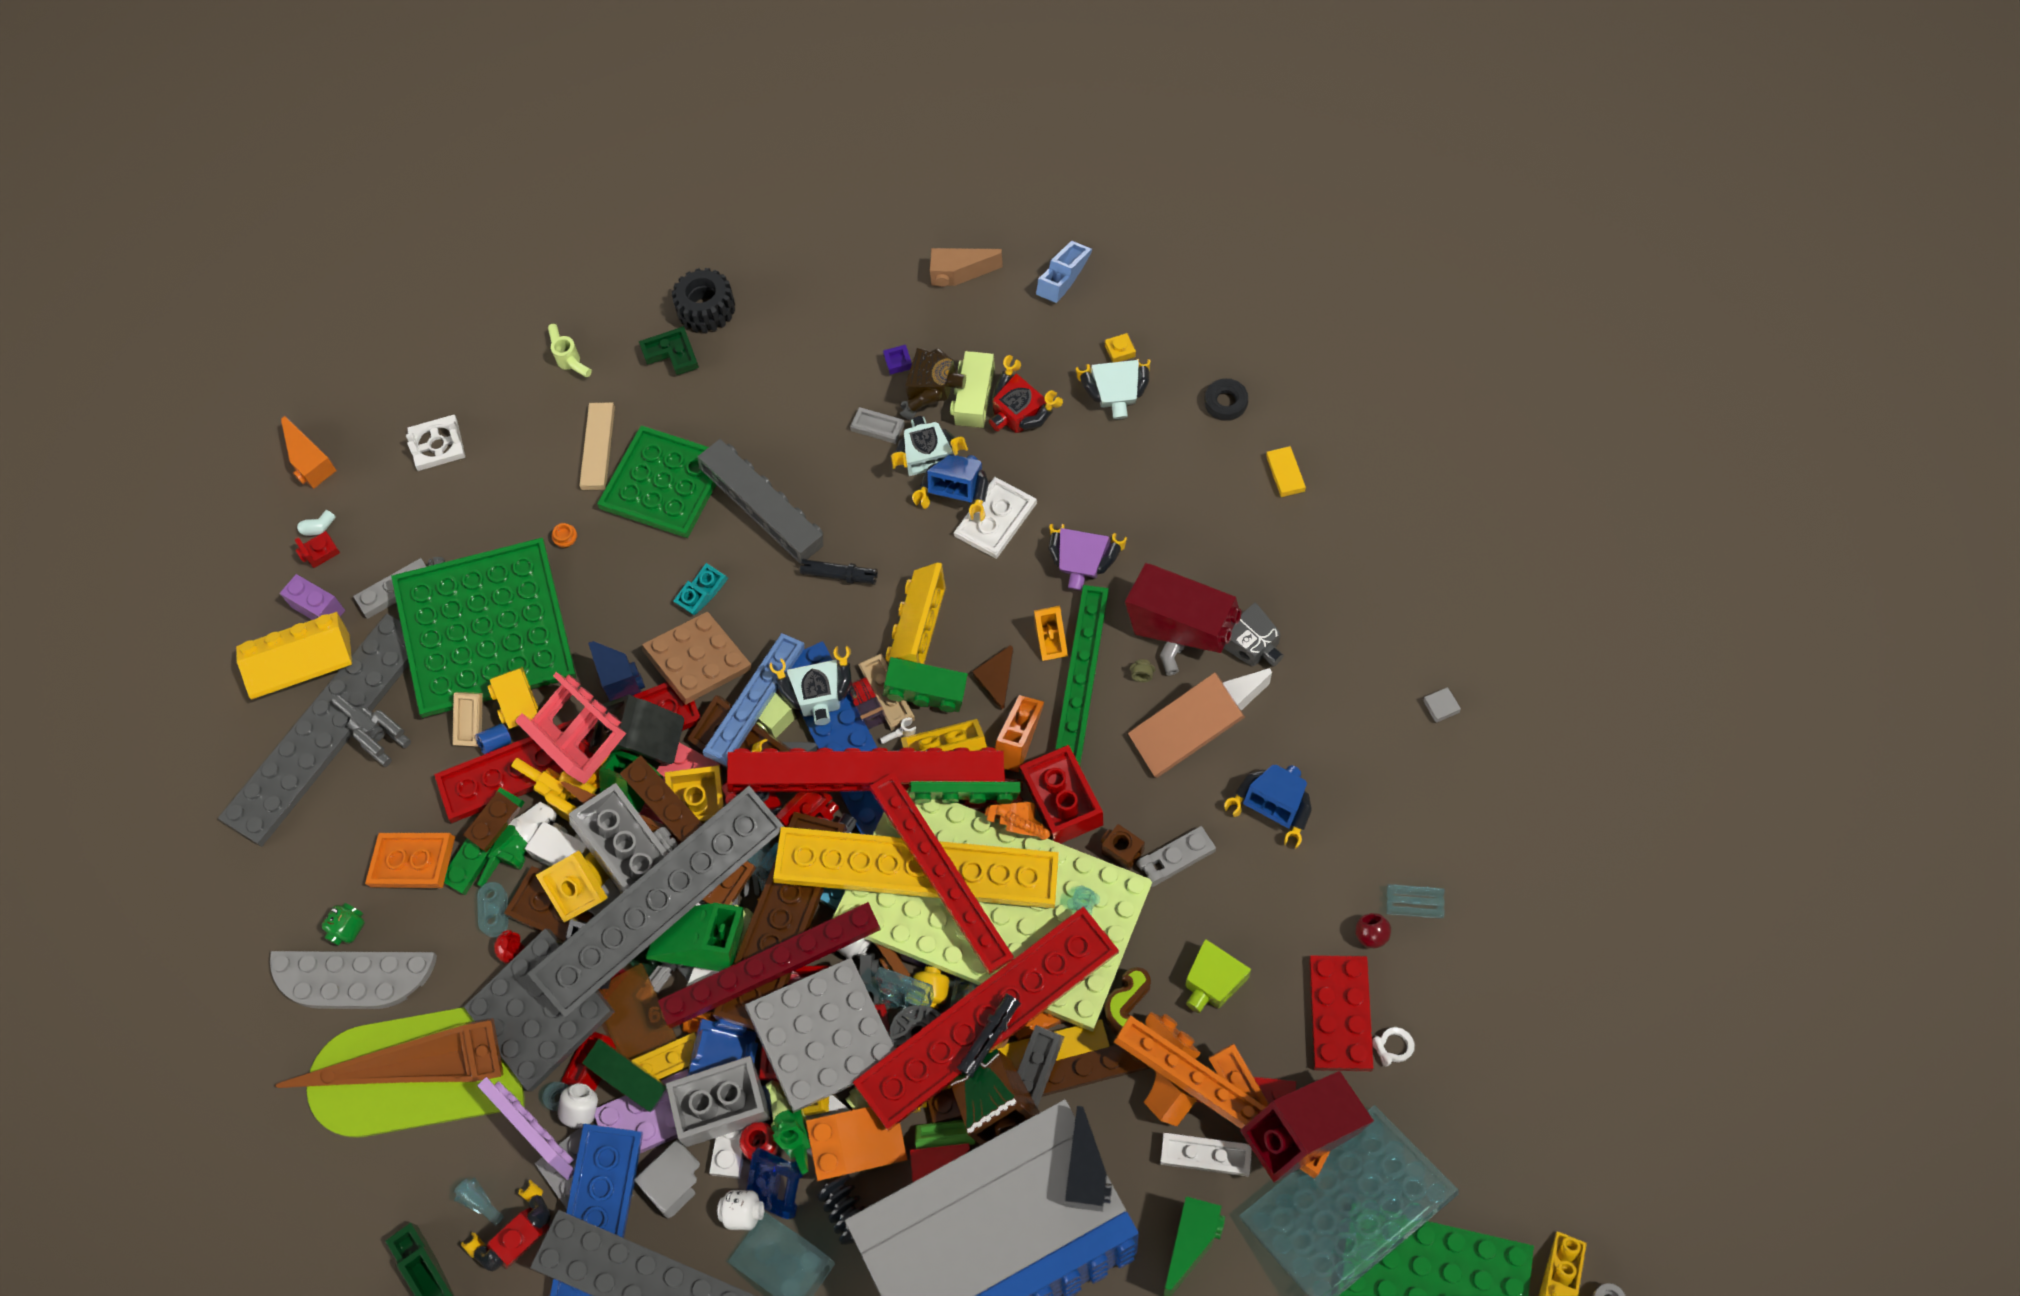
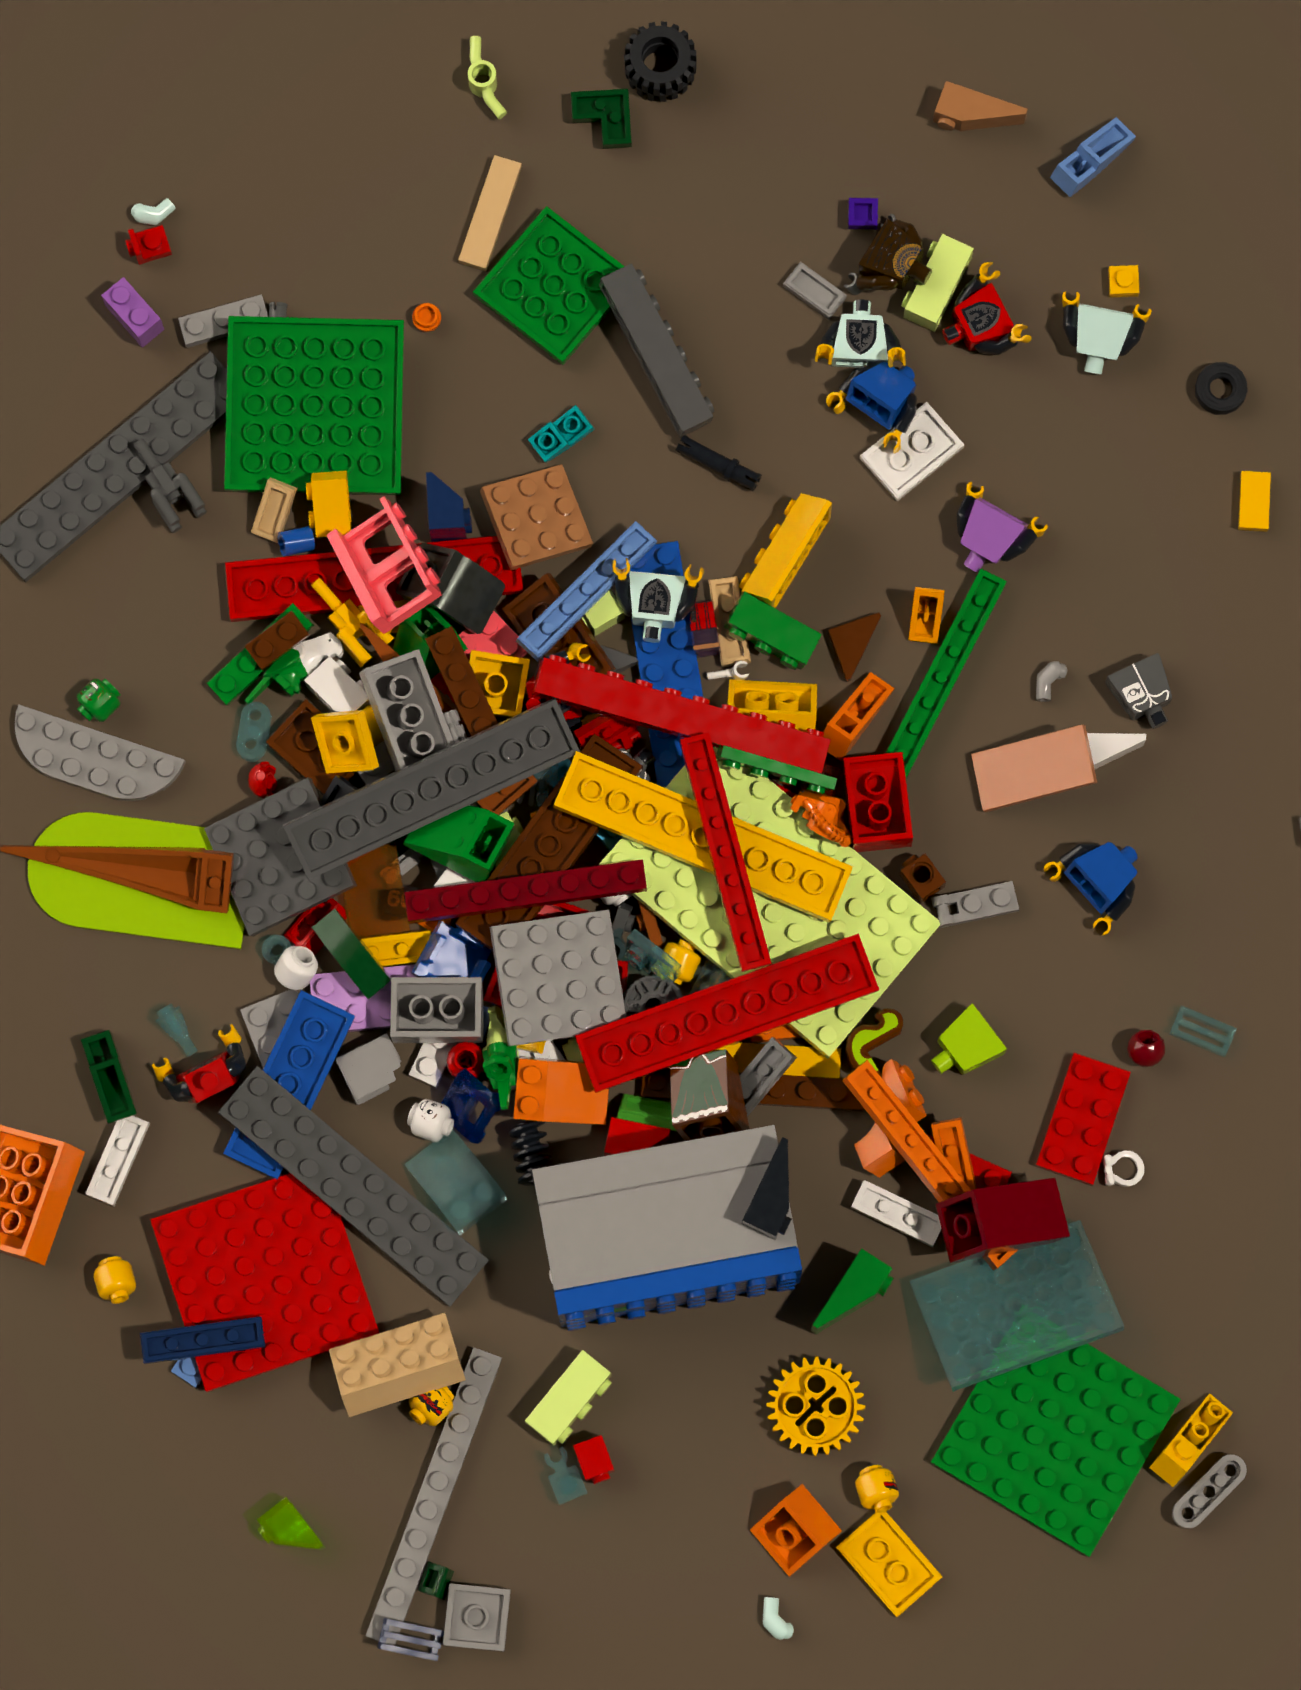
camera: 15 degrees right, 15 degrees up
(294, 655) = (103, 374): yellow slope -> none
(306, 458) = (159, 128): orange slope -> none
(410, 860) = (181, 652): orange plate -> none
(454, 453) = (287, 128): white piece -> none
(528, 1127) = (249, 982): lavender plate -> none
(991, 1032) = (723, 1033): black pin -> none
(1087, 894) = (862, 916): clear light blue plate -> none
(1142, 670) = (1011, 688): olive plate -> none
(1181, 610) = (1074, 638): dark red slope -> none

